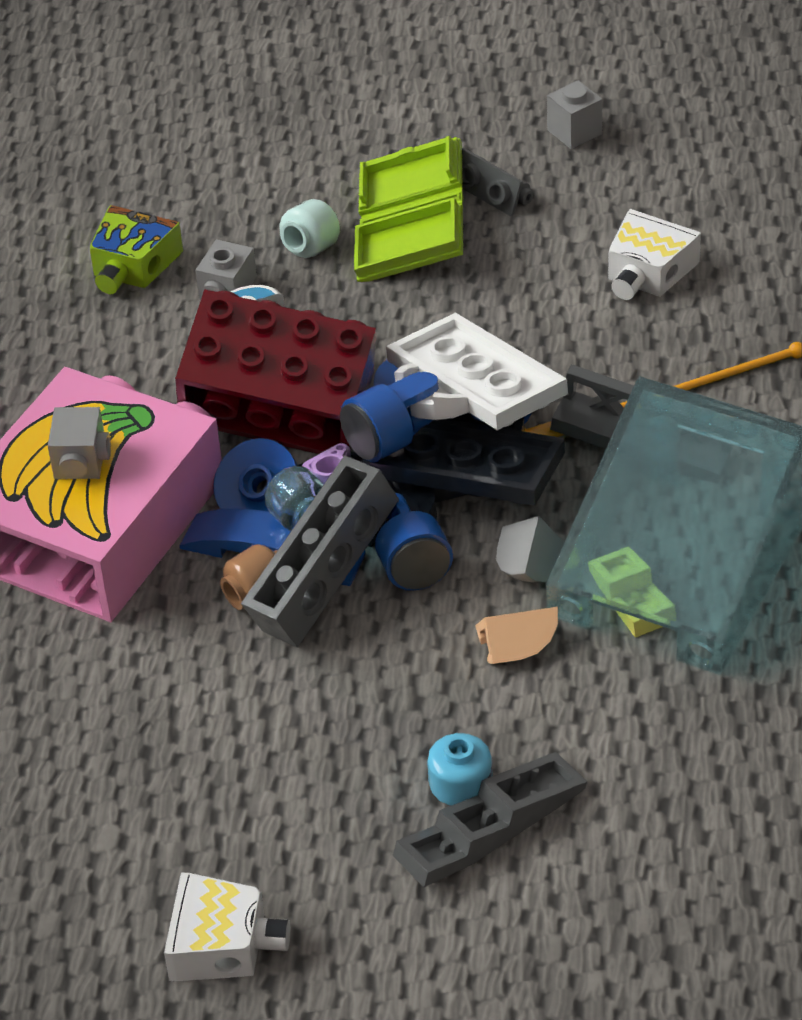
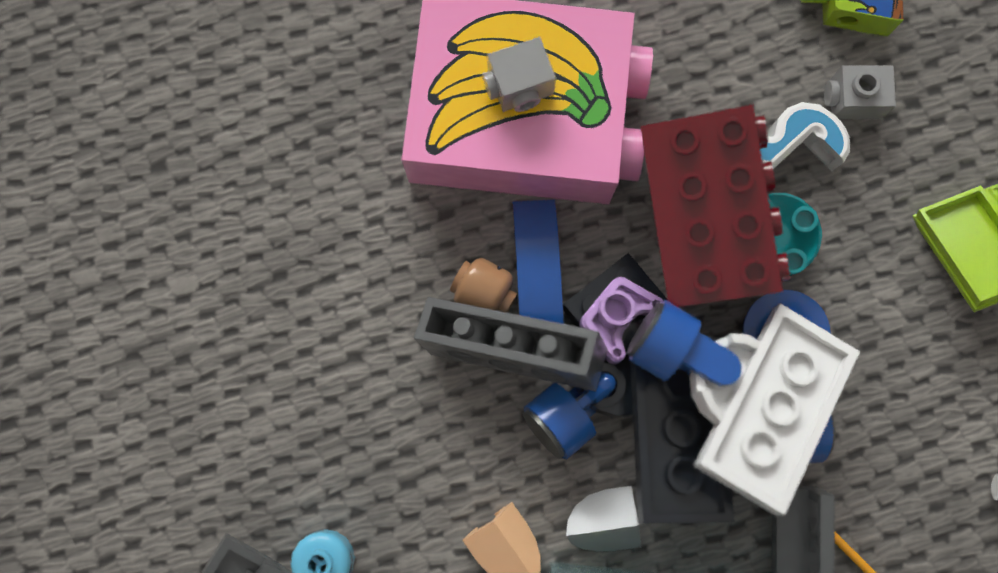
camera: 65 degrees right, 35 degrees up
(219, 930) = (100, 422): white torso -> none
(244, 469) = (588, 228): blue dish -> none
(291, 494) = (566, 295): clear light blue head -> none
(309, 228) = (957, 143): light aqua head -> none

